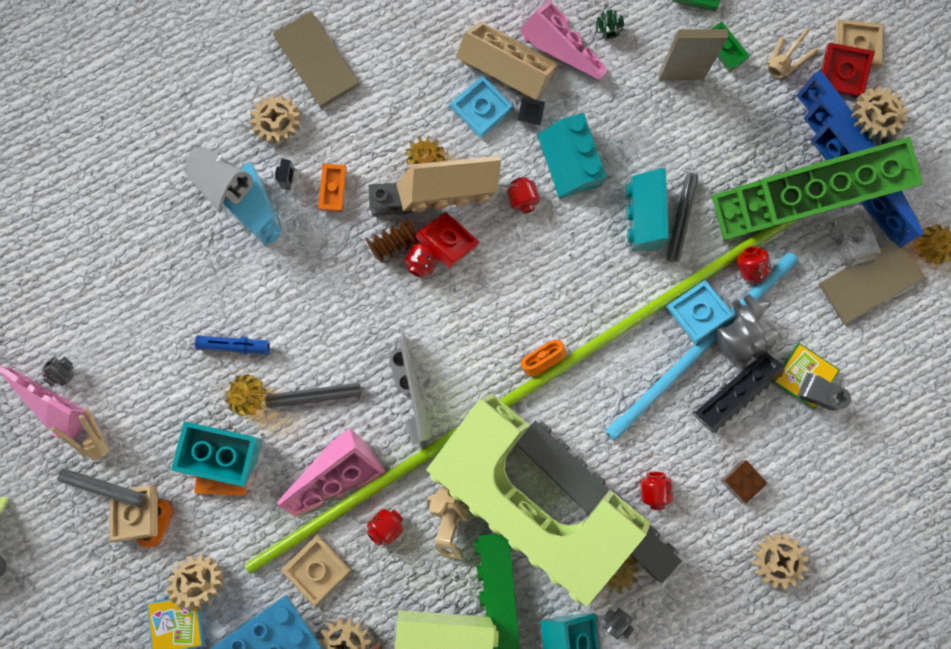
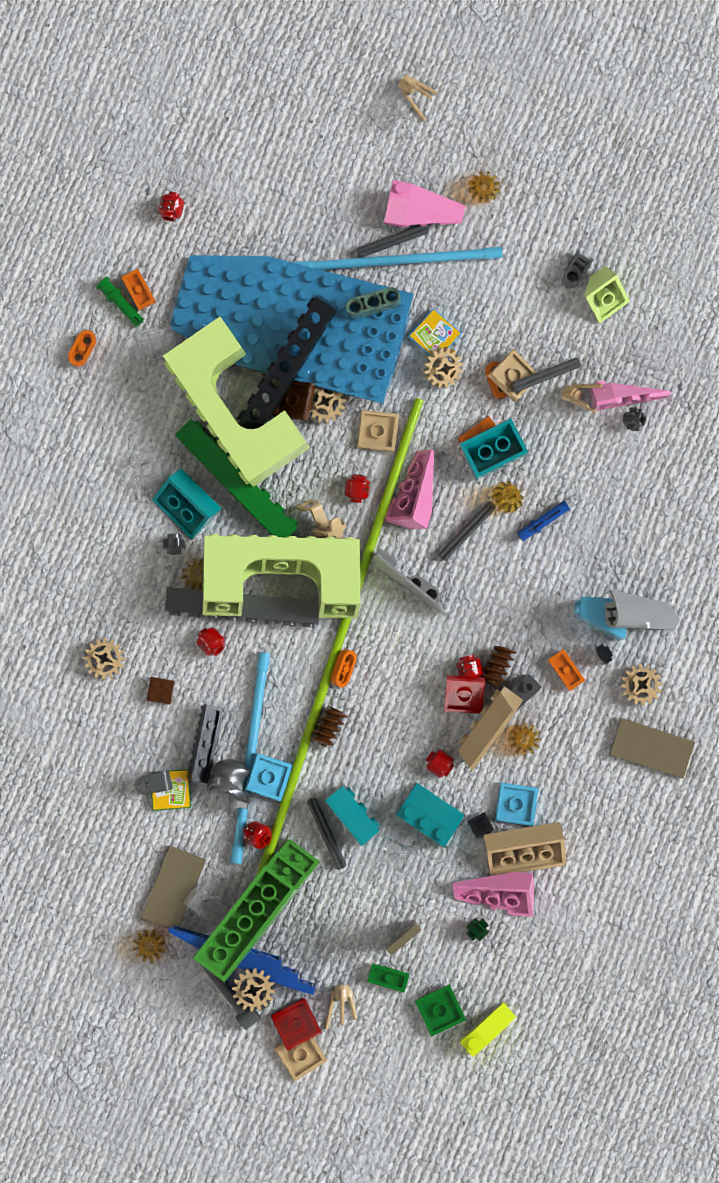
camera: 145 degrees right, 5 degrees up
(603, 311) = (328, 727): none -> reddish brown piece

